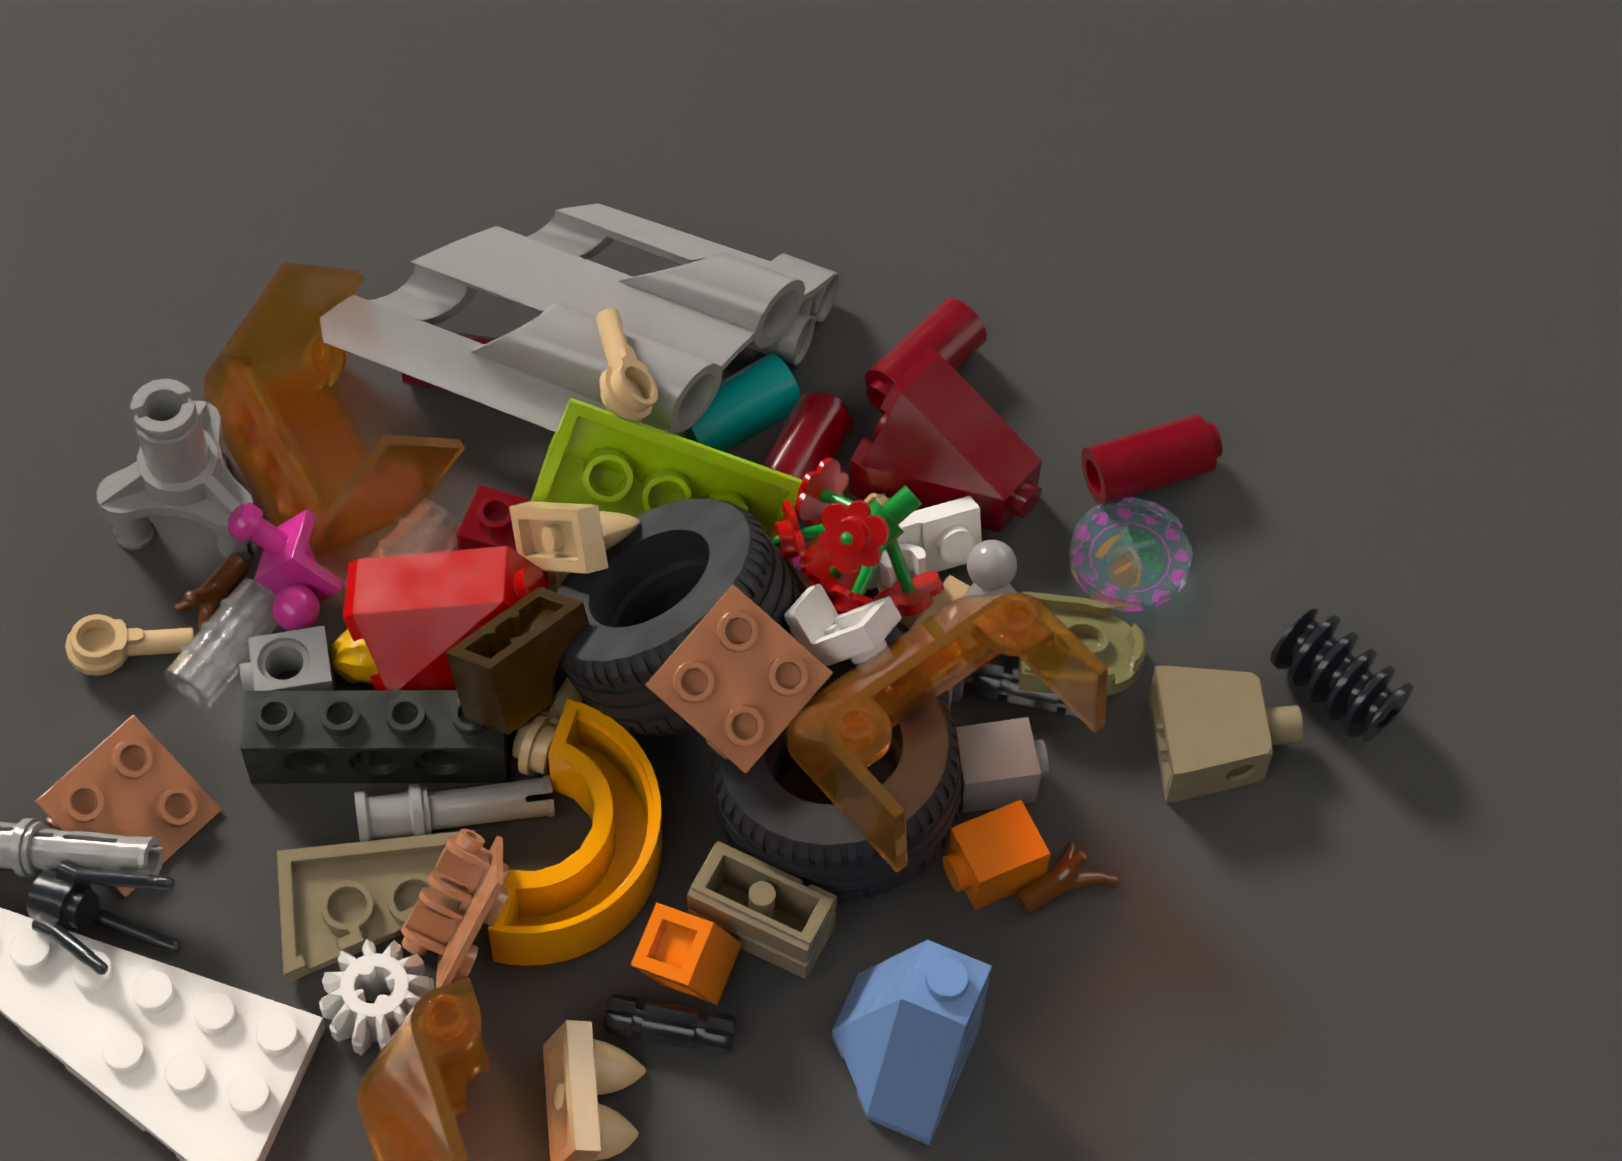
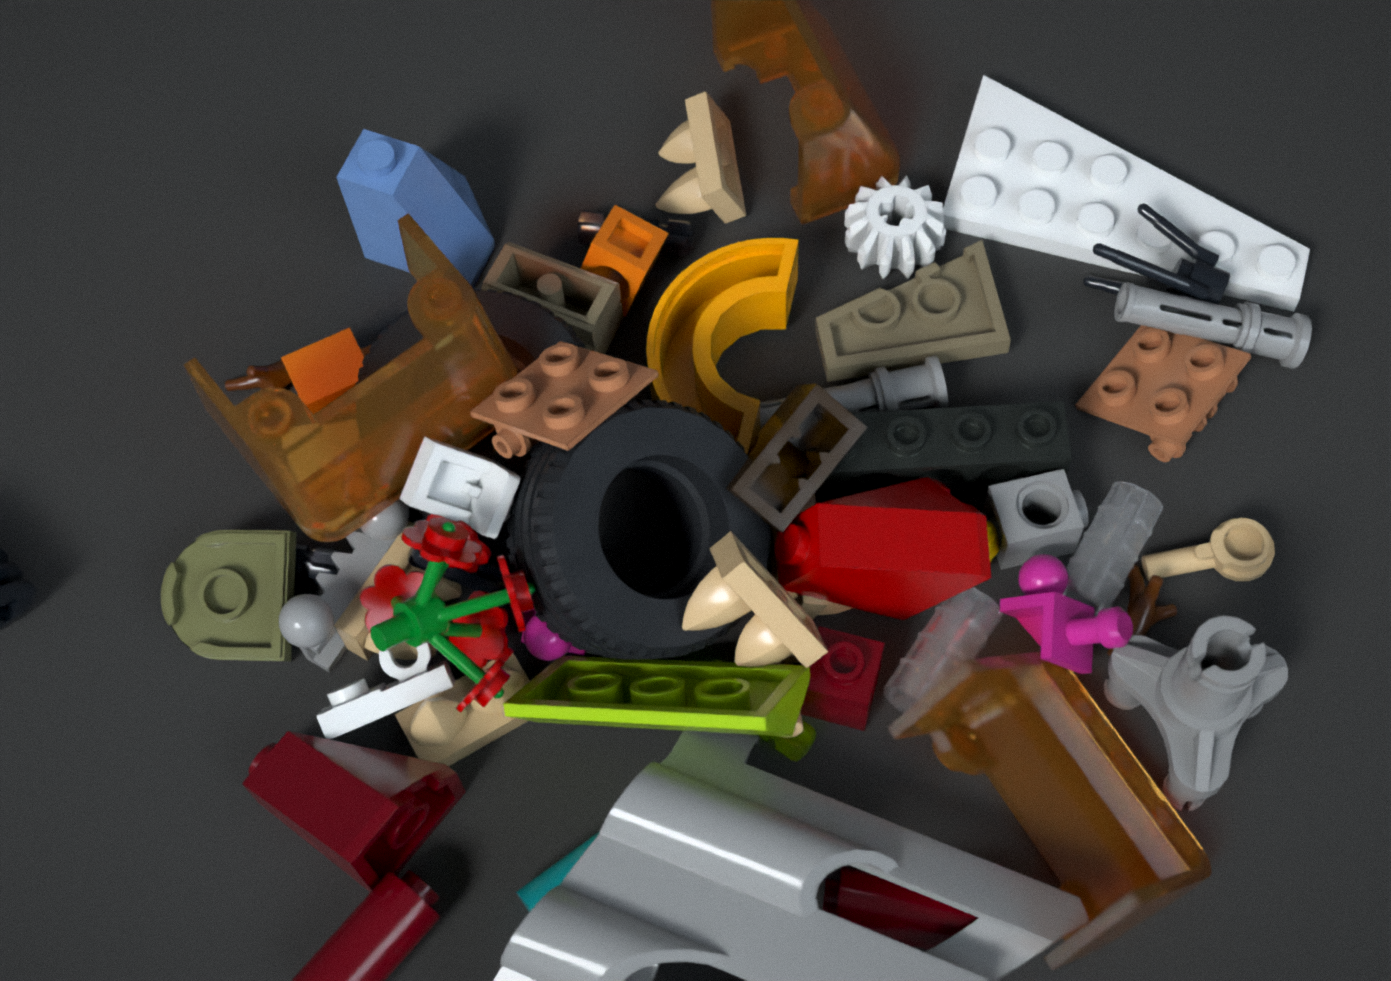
camera: 175 degrees left, 5 degrees up
(465, 897) = (819, 268): nougat hinge -> none
(626, 382) = (701, 757): tan plate -> none
(809, 435) = (516, 806): dark red brick -> none
(1130, 554) = (164, 722): clear light blue tile -> none
(1151, 458) = (120, 824): dark red brick -> none
(1215, 729) = (106, 512): dark tan torso -> none

